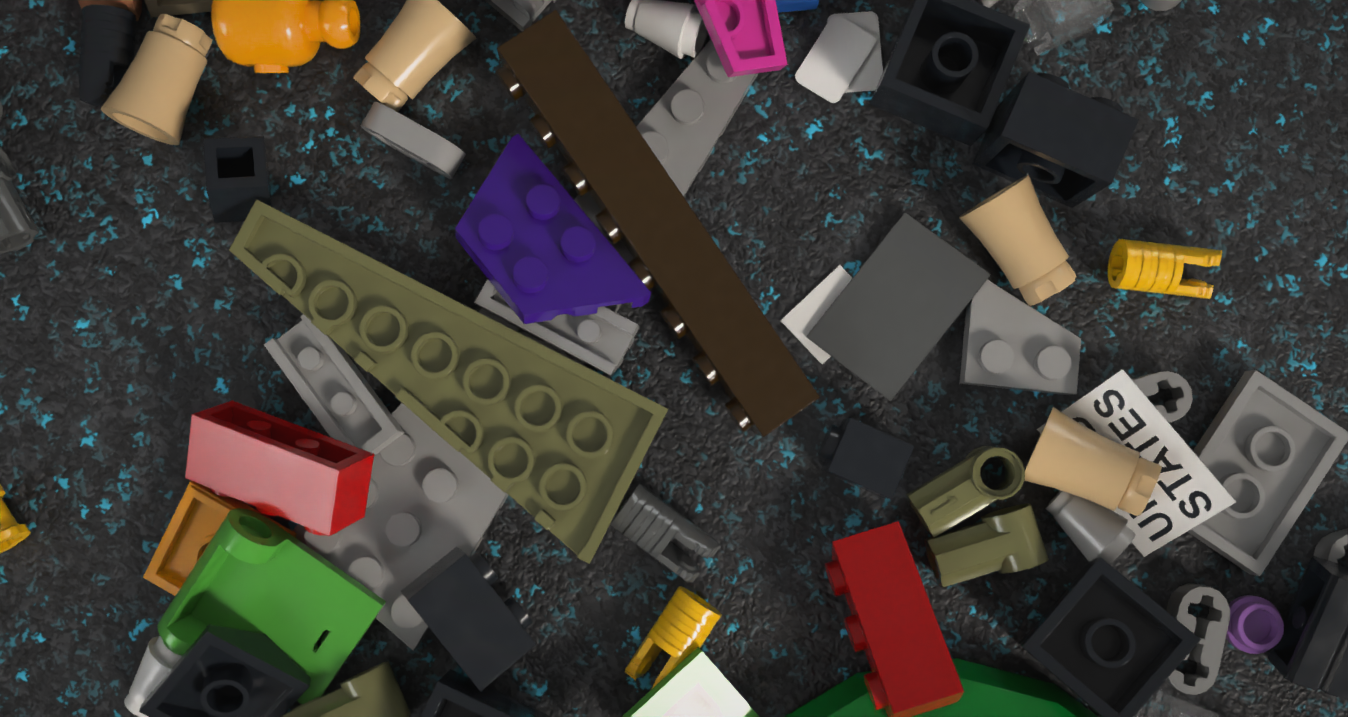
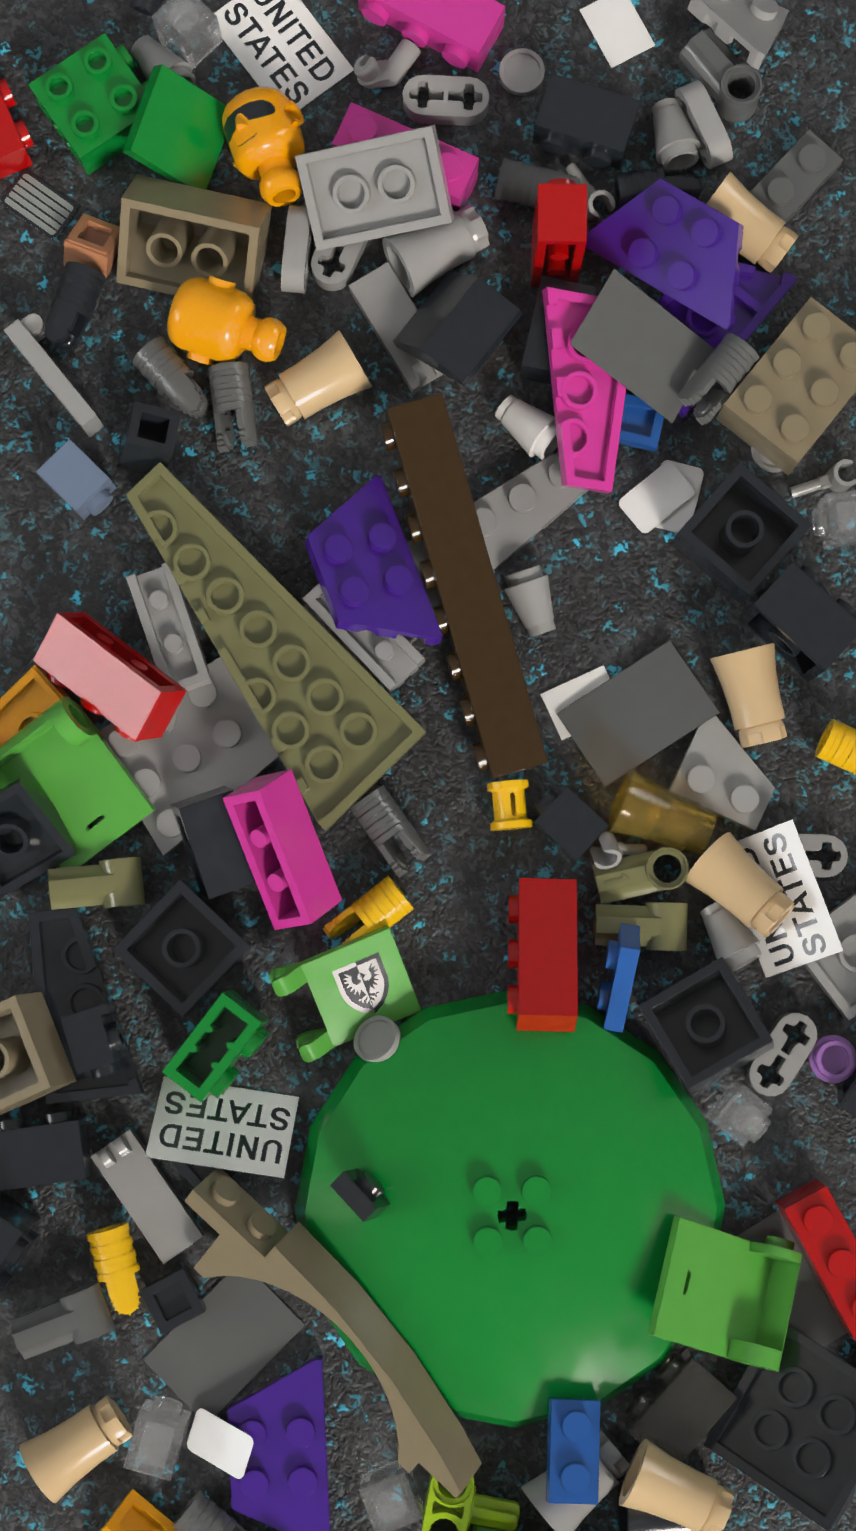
camera: 20 degrees right, 0 degrees up
(66, 110) = (25, 337): none -> light grey hinge
(161, 80) = (111, 339): tan plant -> none
(173, 253) = (77, 480): none -> sand blue brick
(245, 100) = (171, 377): none -> dark grey hinge
(321, 106) = (232, 398): none -> dark grey hinge
(413, 140) = (295, 452): light grey beam -> none
(547, 603) = (282, 849): none -> dark pink brick
(736, 218) = (531, 599): none -> light grey cone
(790, 459) = (509, 805): none -> yellow bush
(925, 473) = (611, 851): none -> light grey hand
(965, 413) = (660, 815): none -> clear yellow plant
(987, 605) = (622, 960): none -> blue plate

